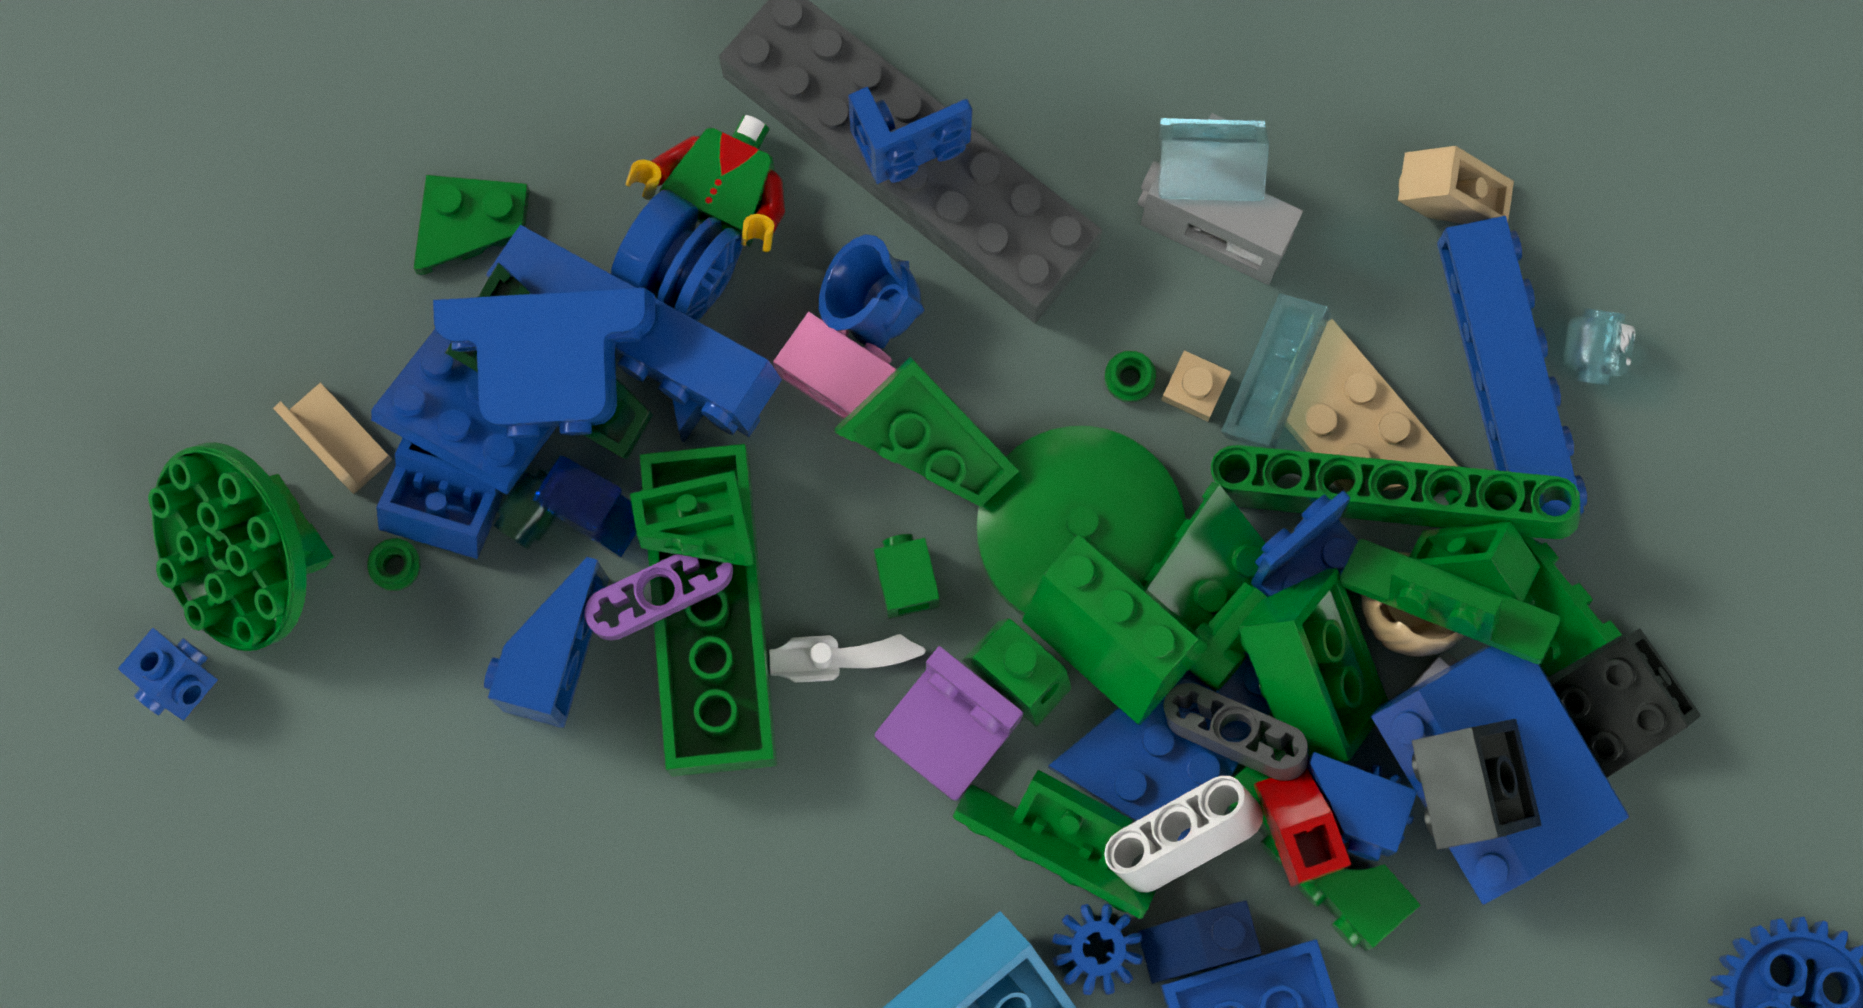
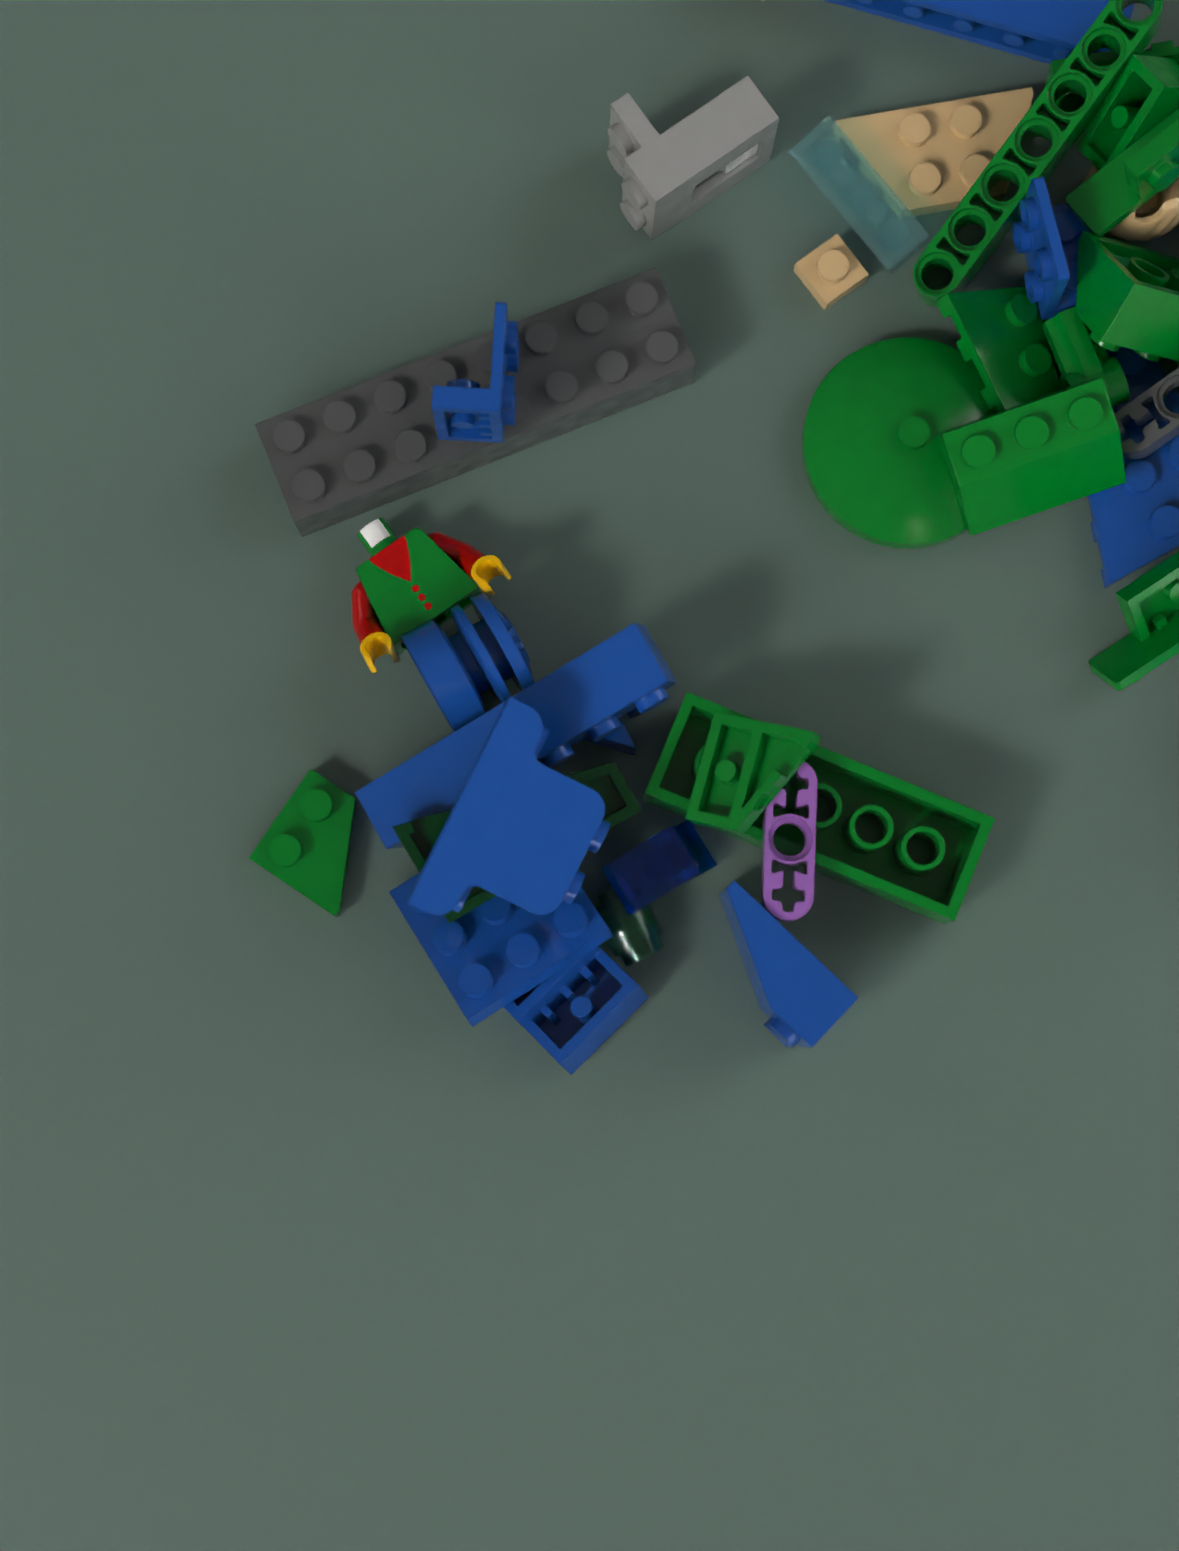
camera: 65 degrees left, 5 degrees up
(175, 682) = (611, 1341): blue brick -> none
(233, 545) = (526, 1218): green bracket -> none
(335, 437) = (458, 1071): tan panel -> none
(383, 553) = (606, 1095): green plate -> none
(821, 659) = (905, 734): white piece -> none
(831, 366) = (671, 565): bright pink brick -> none
(869, 292) = (595, 508): blue helmet -> none
(906, 575) = (874, 616): green brick -> none
(926, 432) = (763, 522): green wing -> none
(949, 725) = (1028, 651): medium lavender bracket -> none
(1020, 670) = (1013, 561): green torso -> none
(1130, 361) = (792, 309): green plate -> none
(1213, 159) = (660, 122): clear light blue panel -> none

